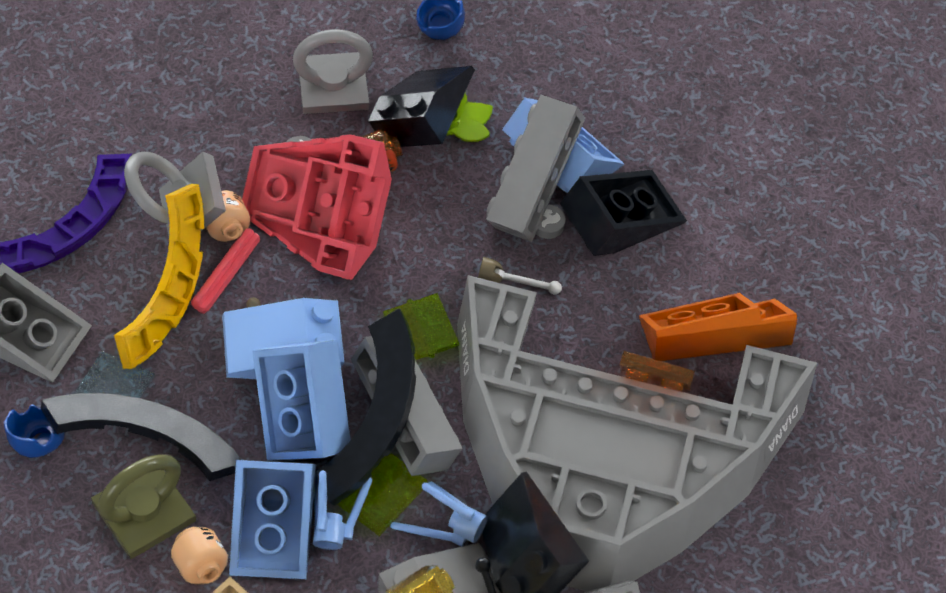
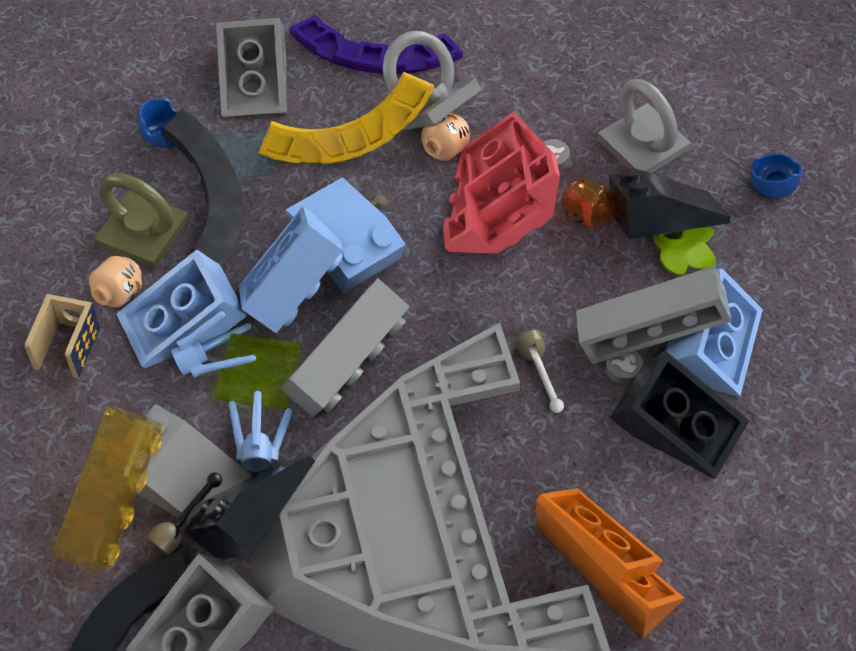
camera: 65 degrees right, 0 degrees up
(225, 271) = (397, 166): coral axle -> none
(386, 413) = (313, 329): black tile -> none
(428, 326) = (439, 325): clear neon green piece -> none
(642, 368) = (507, 522): clear orange plate -> none

